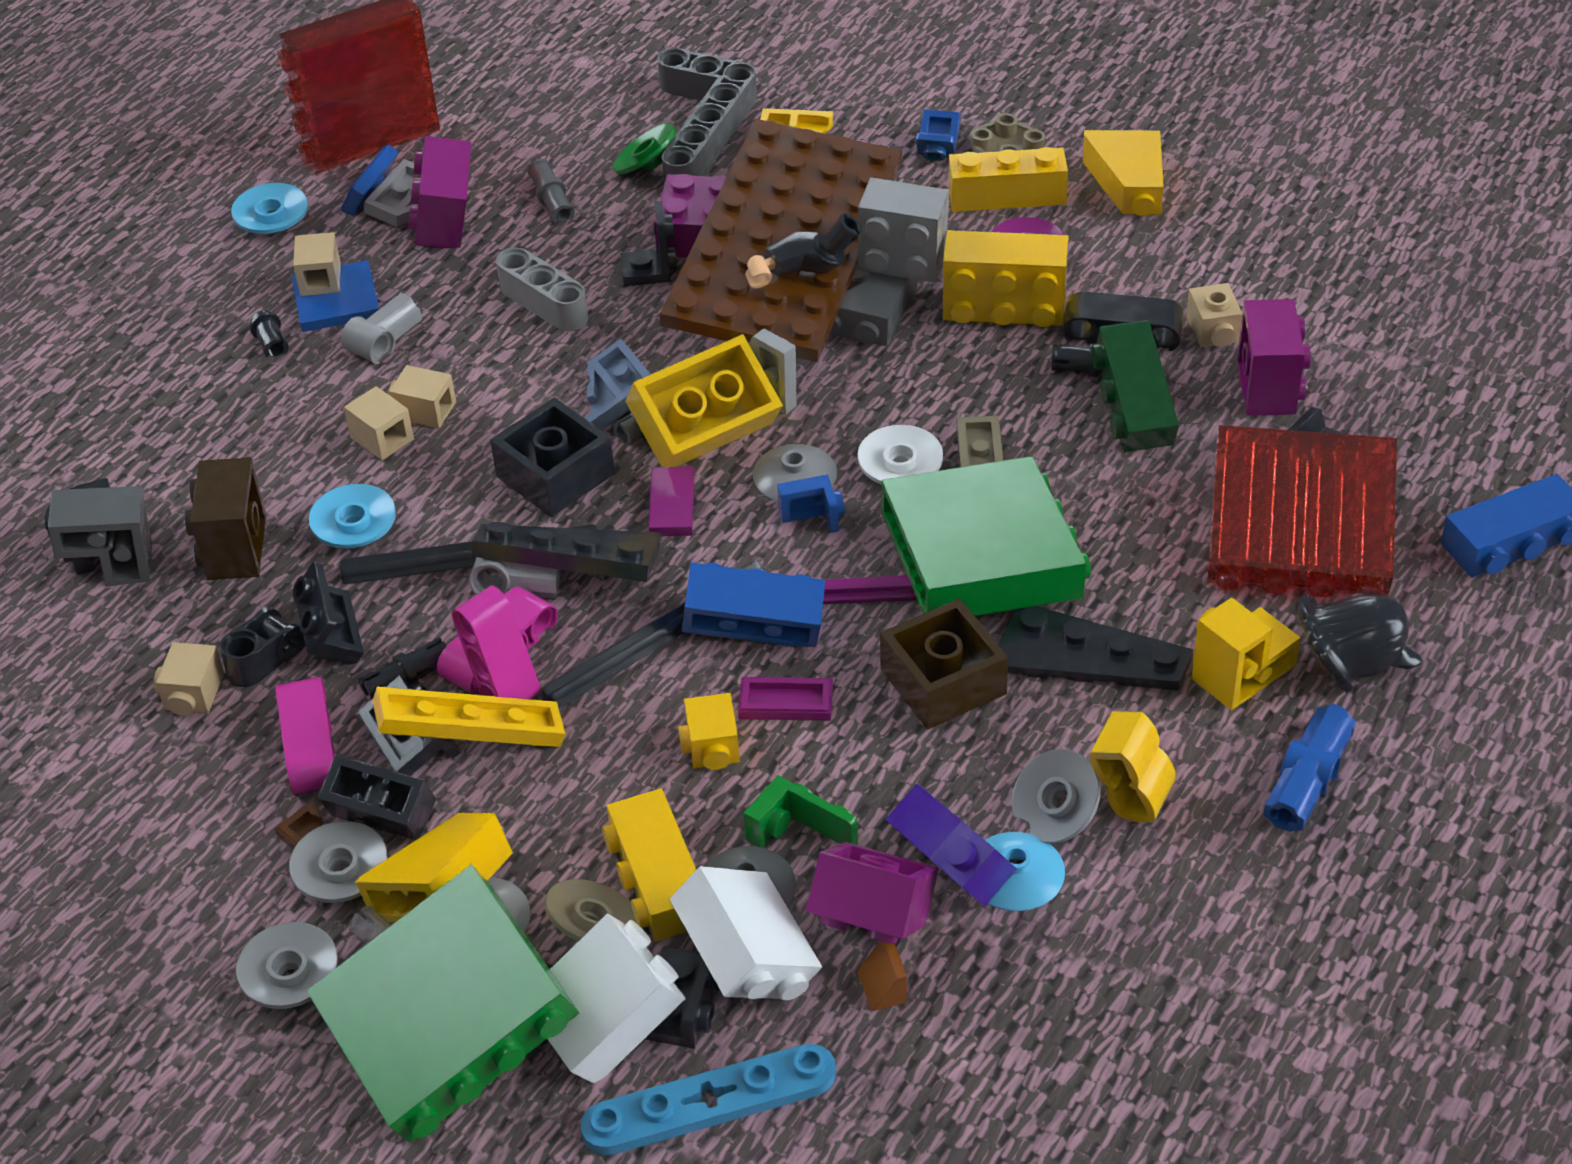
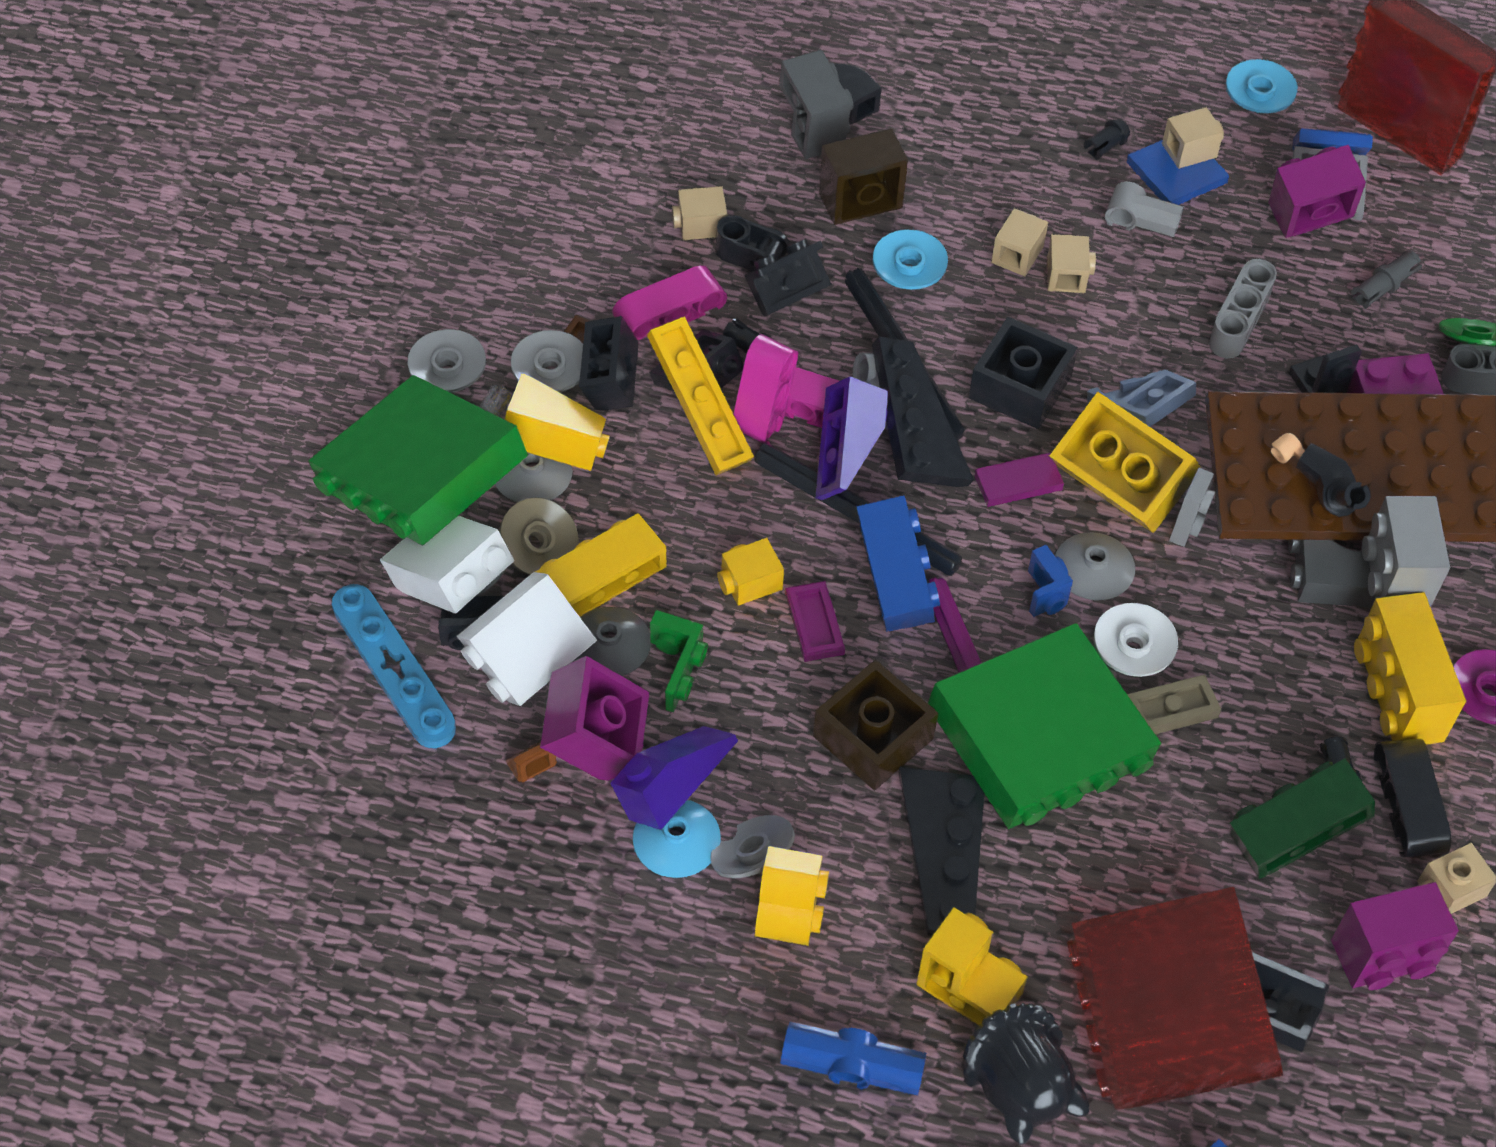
camera: 70 degrees right, 10 degrees up
(586, 602) = (850, 427): none -> slope

